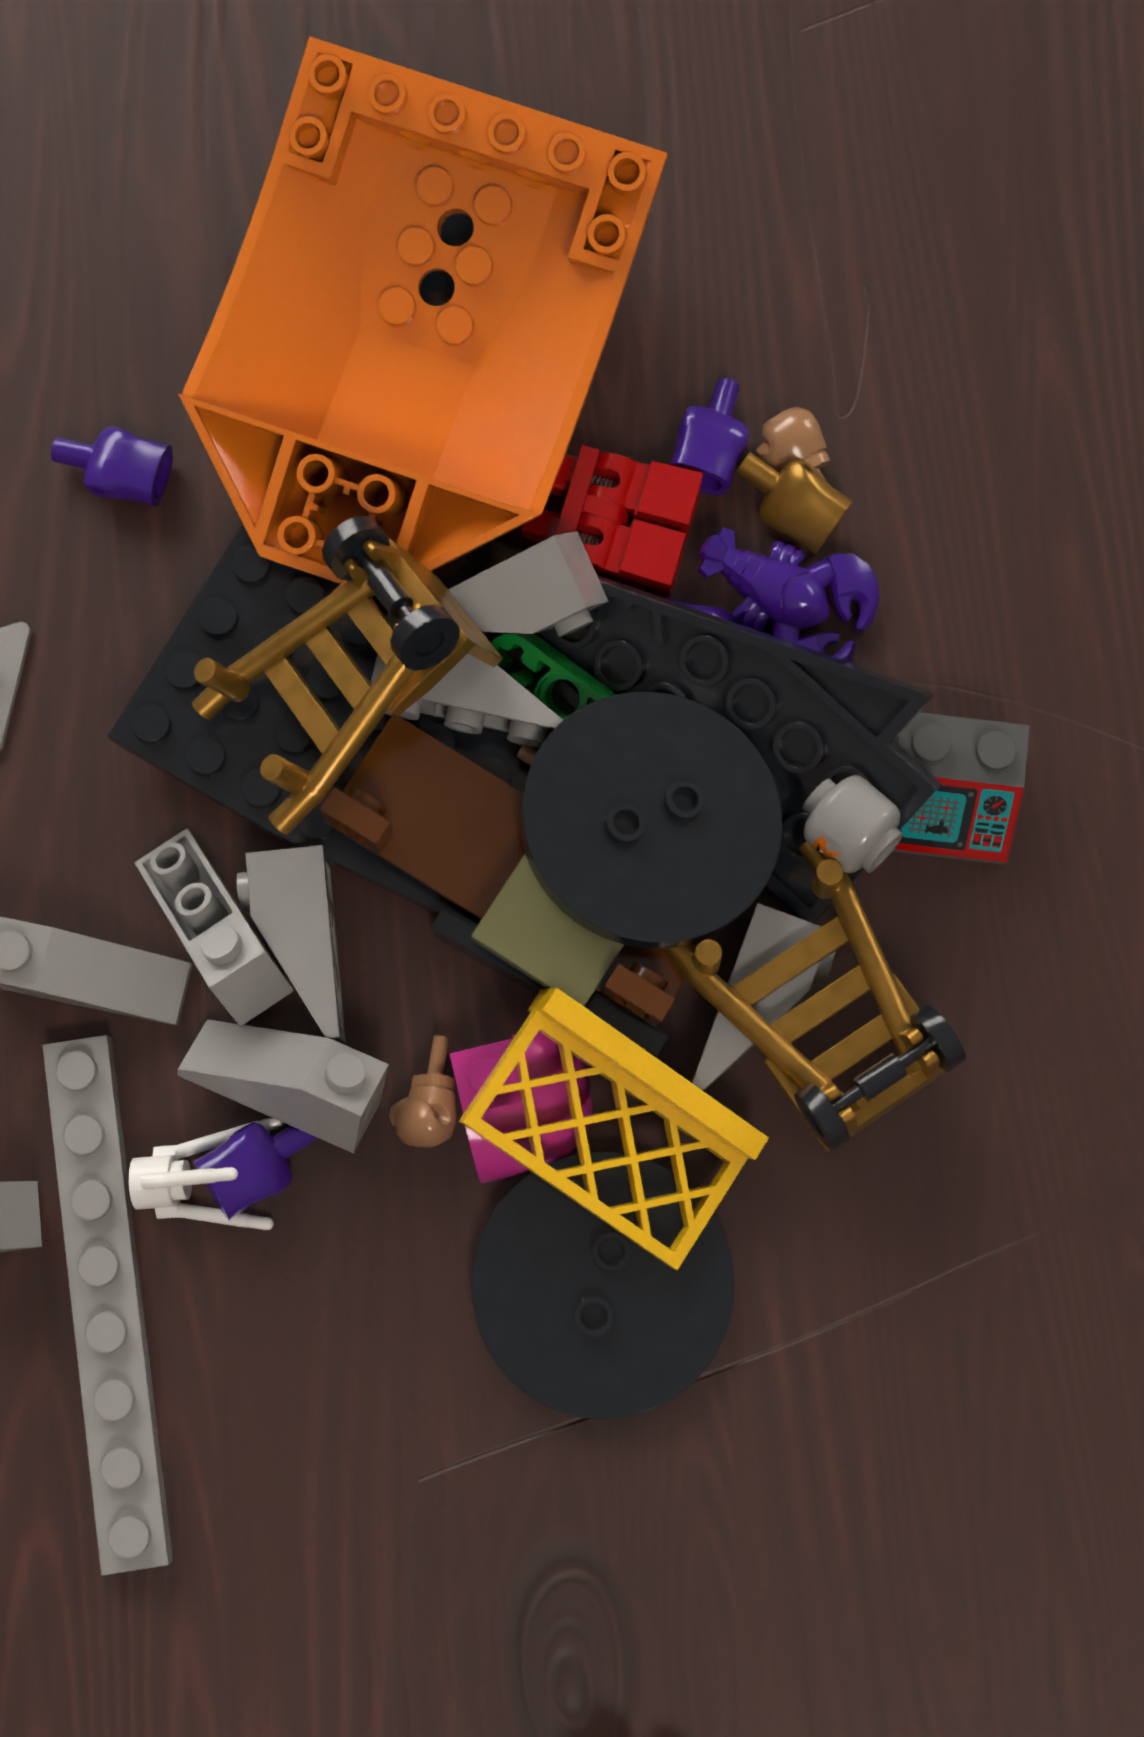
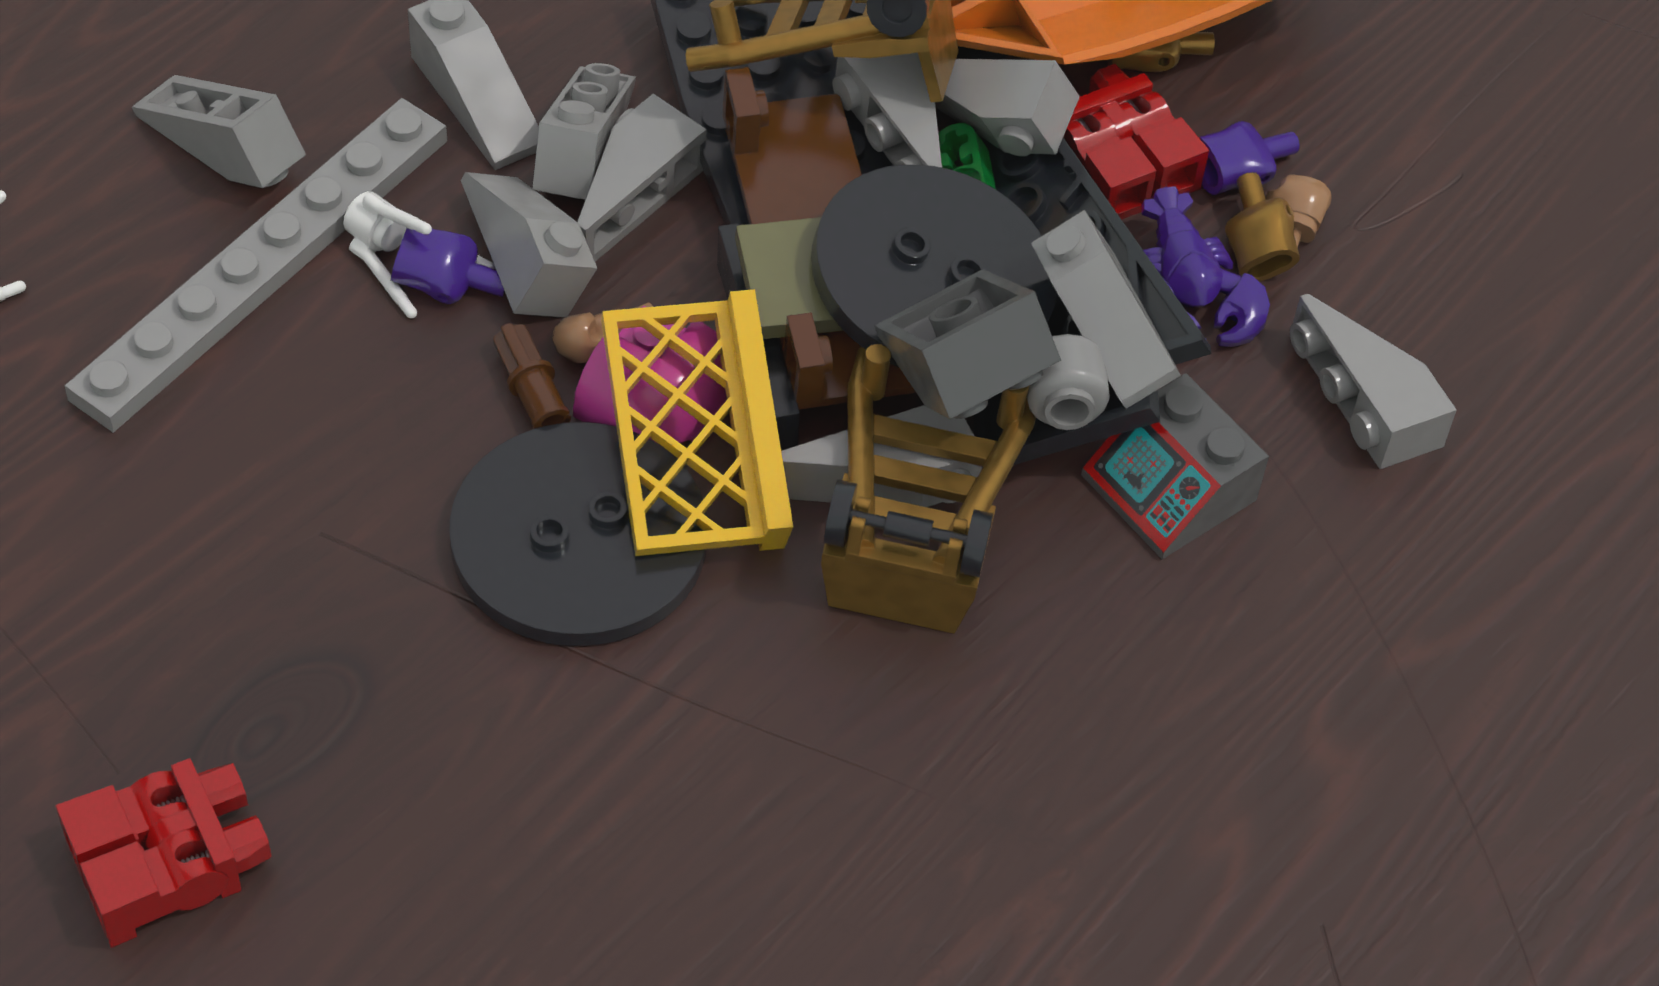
camera: 40 degrees right, 25 degrees down
(424, 1192) = (530, 376): none -> reddish brown axle
(774, 883) = (970, 343): none -> dark grey slope
(824, 734) = (1106, 308): none -> light grey slope
(1018, 565) = (1380, 389): none -> light grey slope

